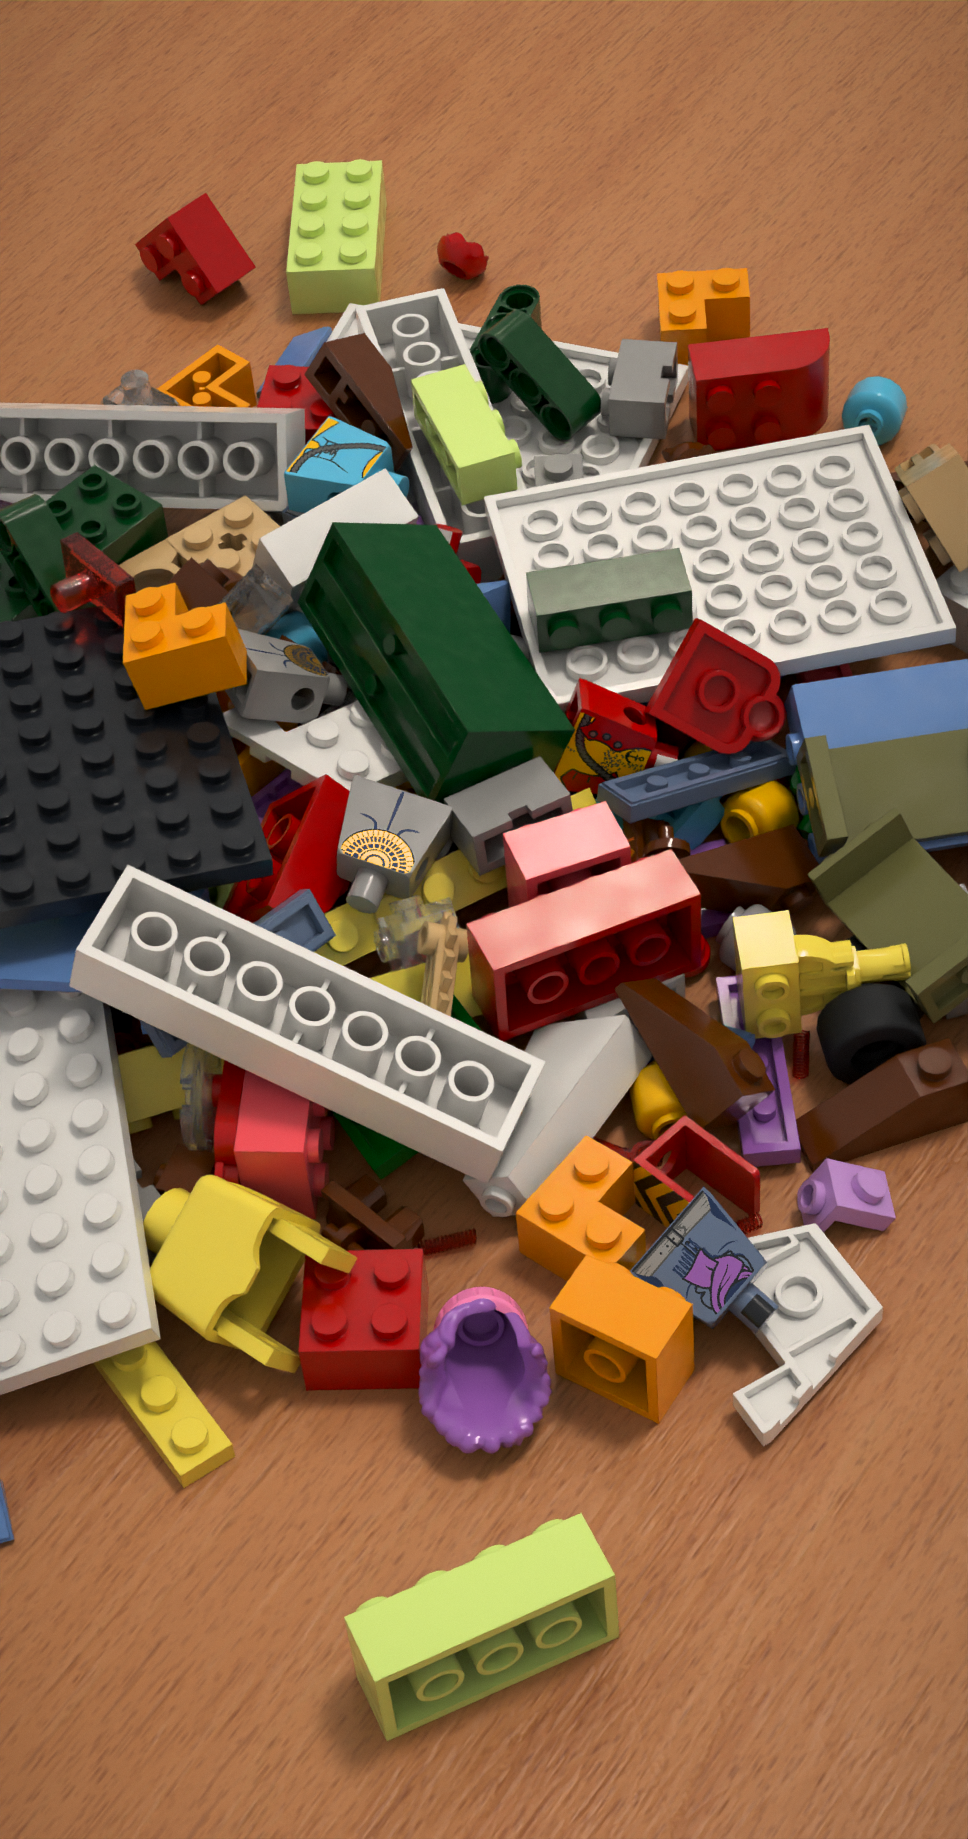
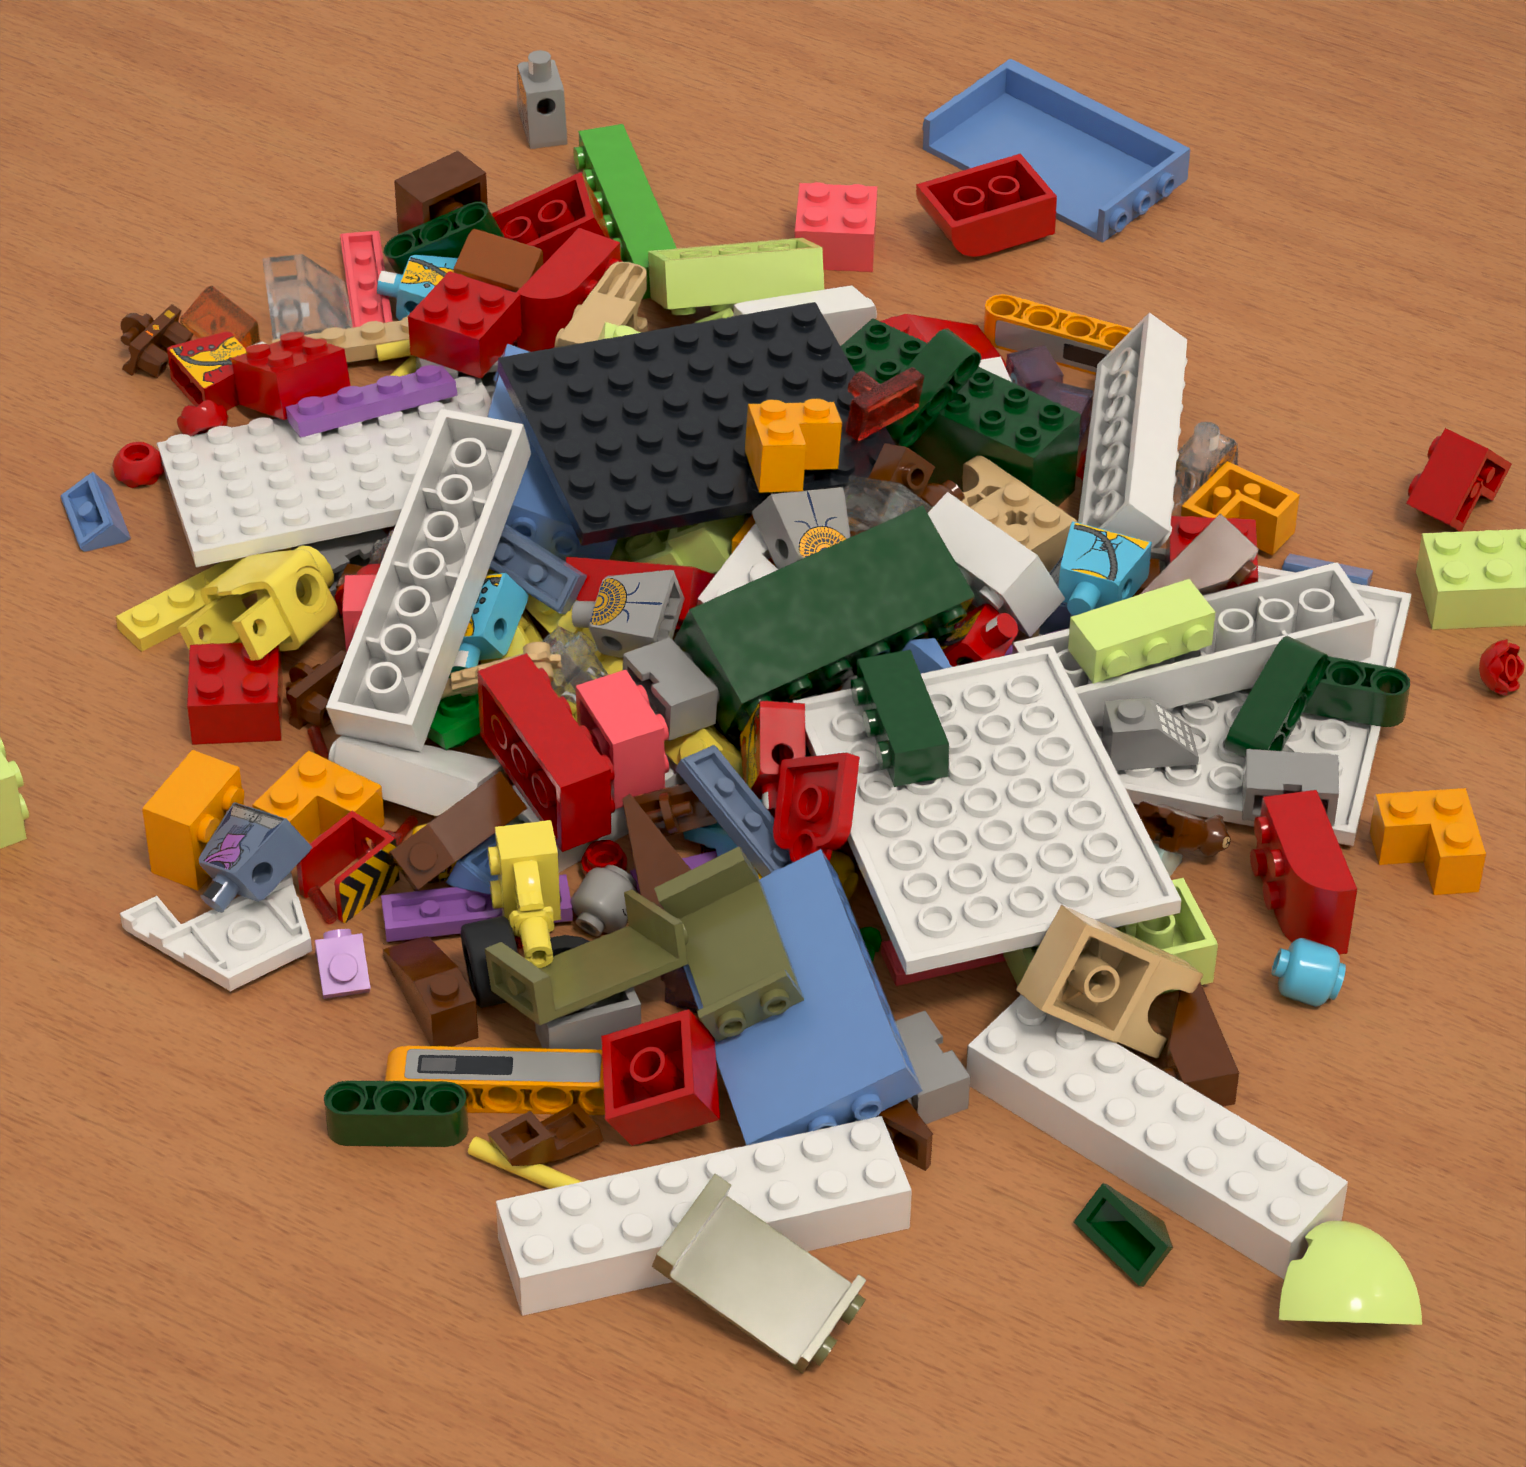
camera: 80 degrees right, 5 degrees down
(482, 1372) = (168, 737): medium lavender hair -> none

